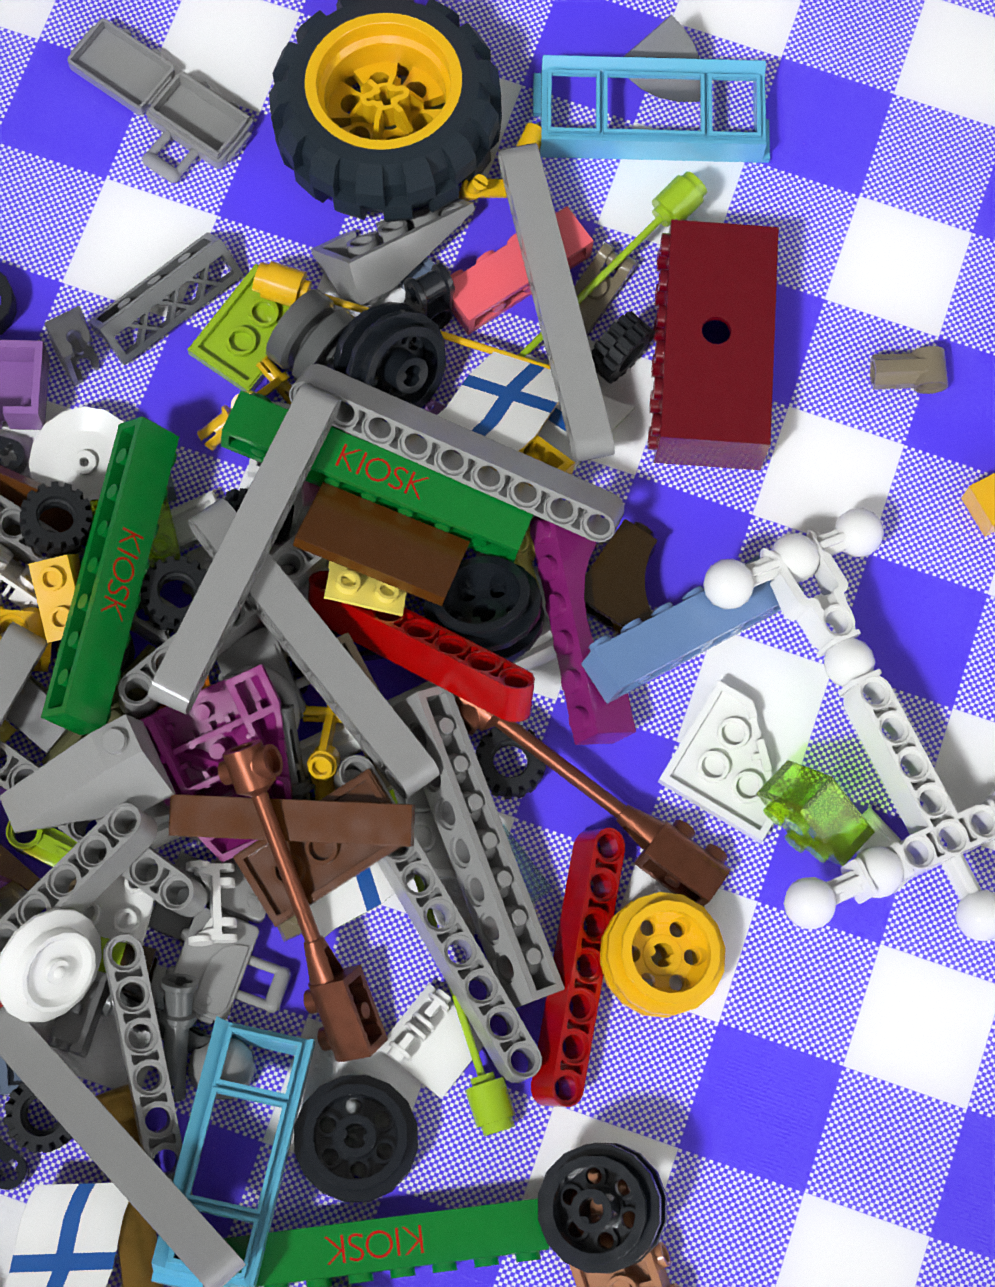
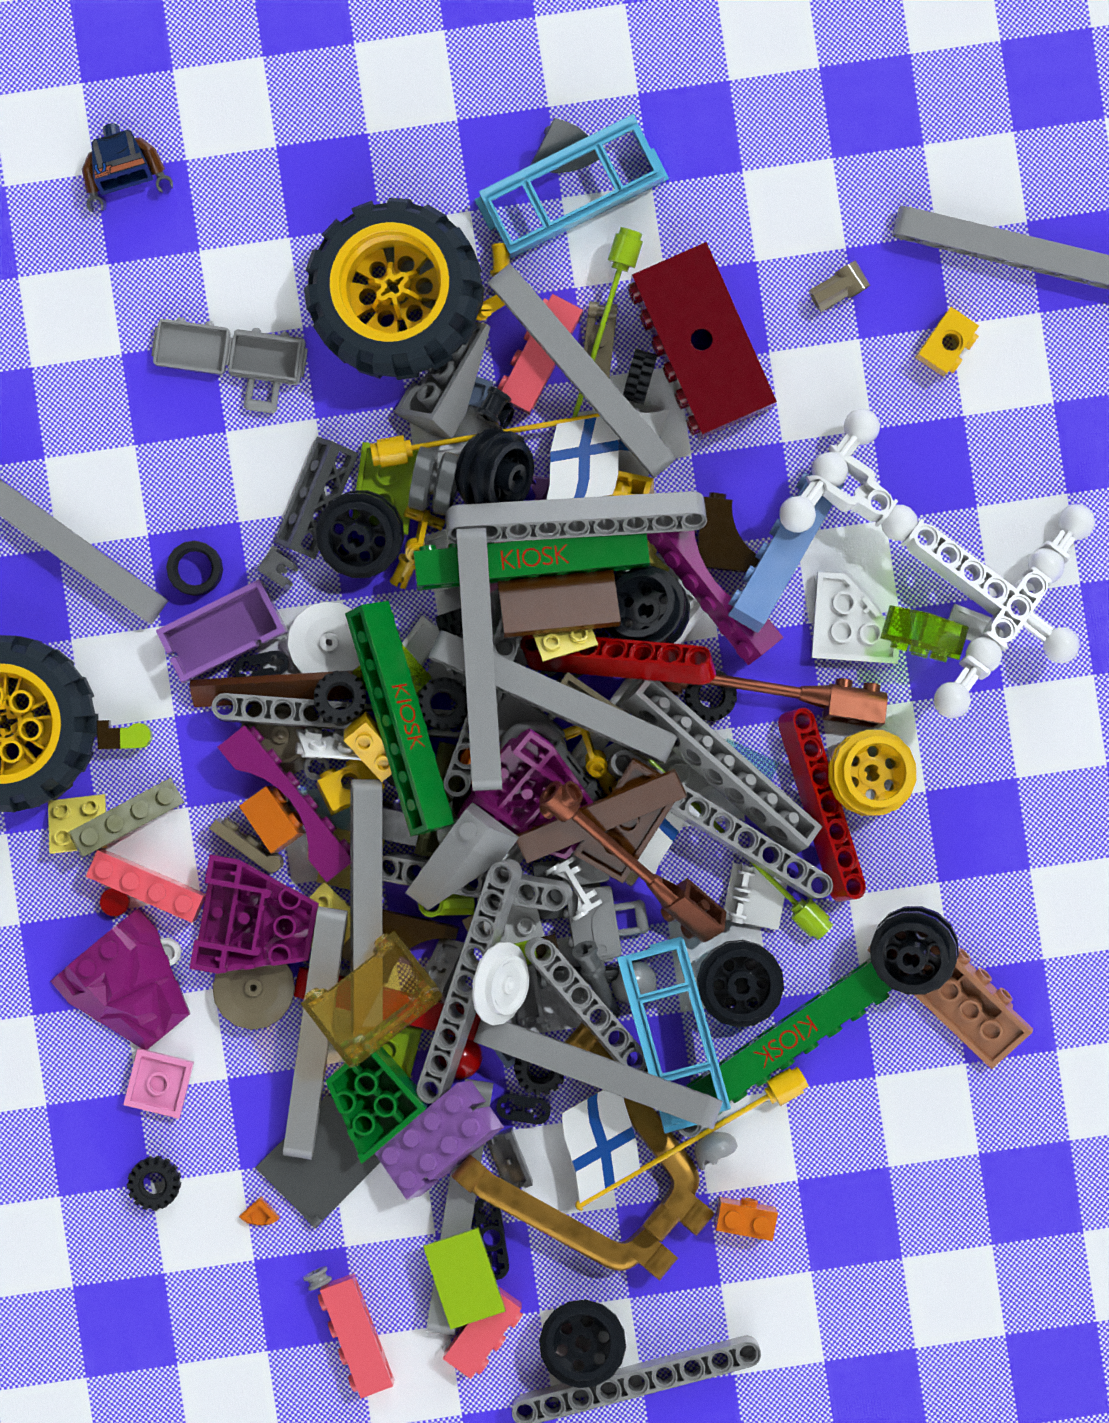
camera: 20 degrees left, 15 degrees up
(168, 332) = (351, 563): none -> black wheel

